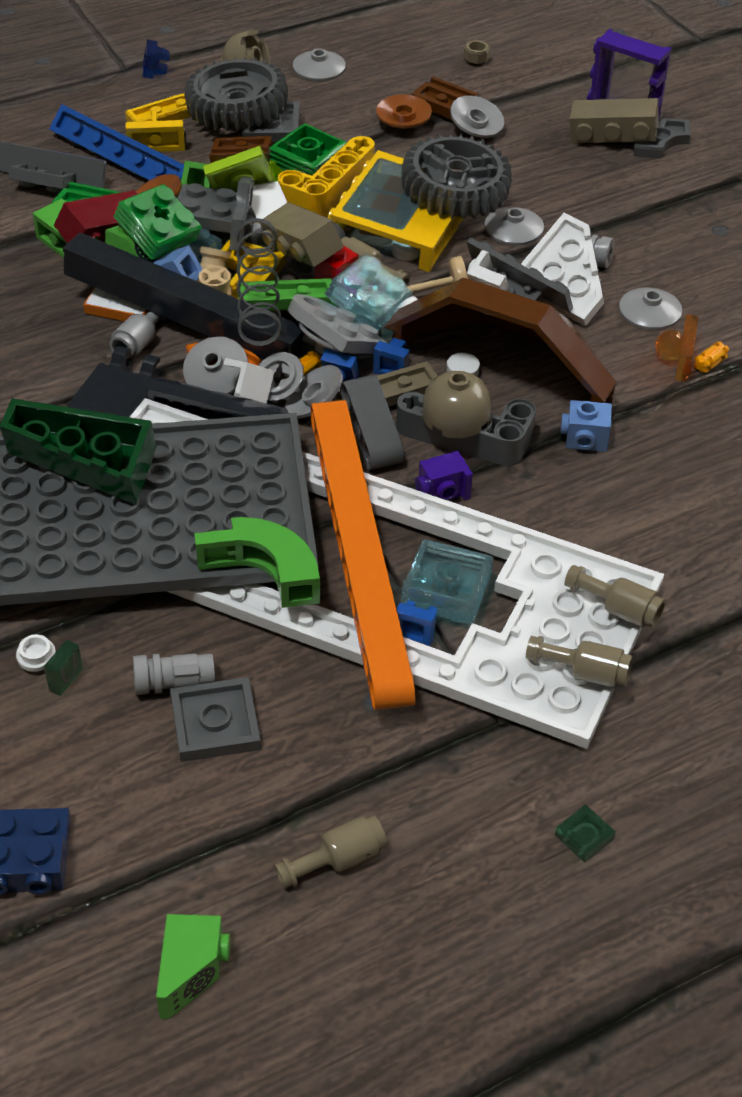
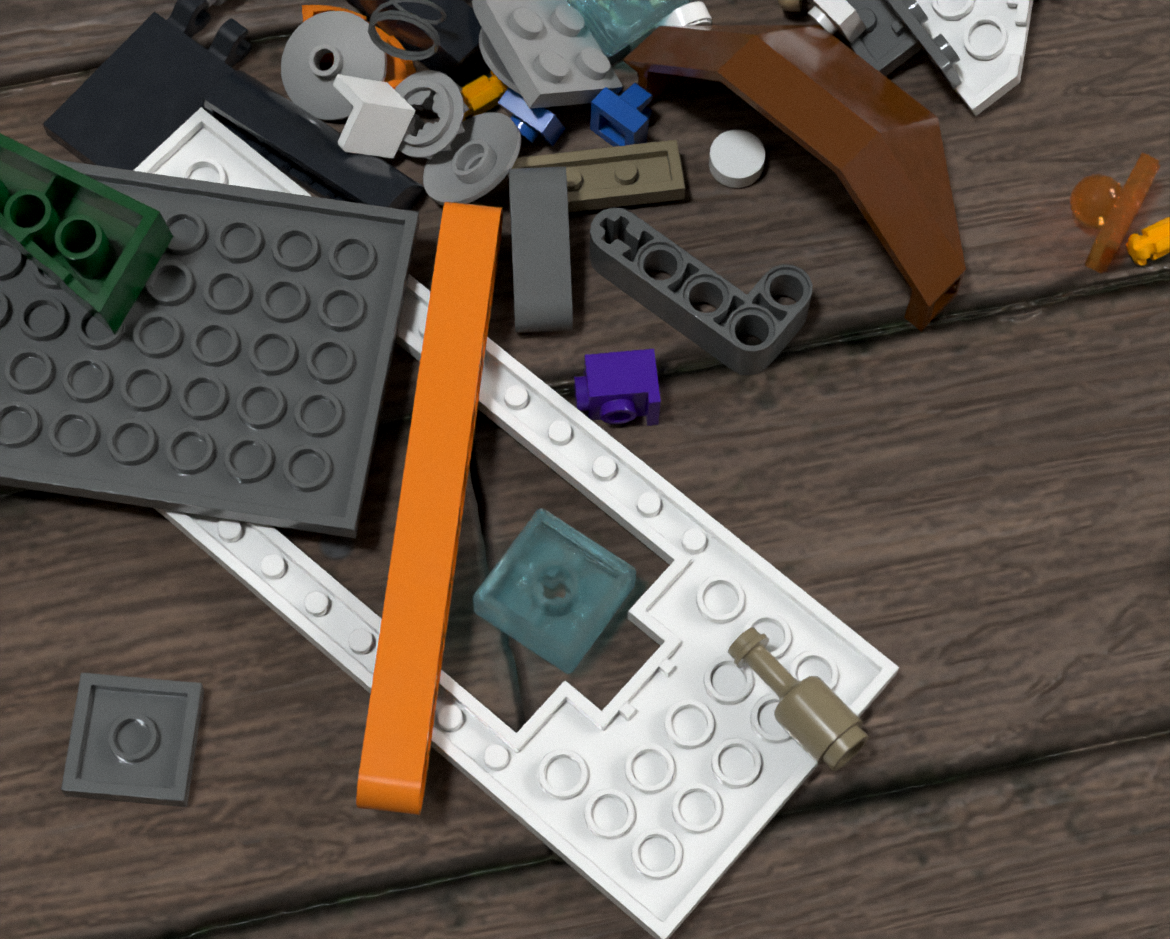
camera: 15 degrees right, 20 degrees up
(171, 671) = (89, 645): light grey axle -> none
(266, 547) = (272, 474): bright green arch -> none
(416, 622) = (477, 658): blue tile -> none
(457, 404) = (678, 265): dark tan cylinder -> none
(587, 425) = (891, 337): medium blue brick -> none
(589, 660) = (709, 811): dark tan piece -> none
(650, 308) = (1098, 120): light grey dish -> none

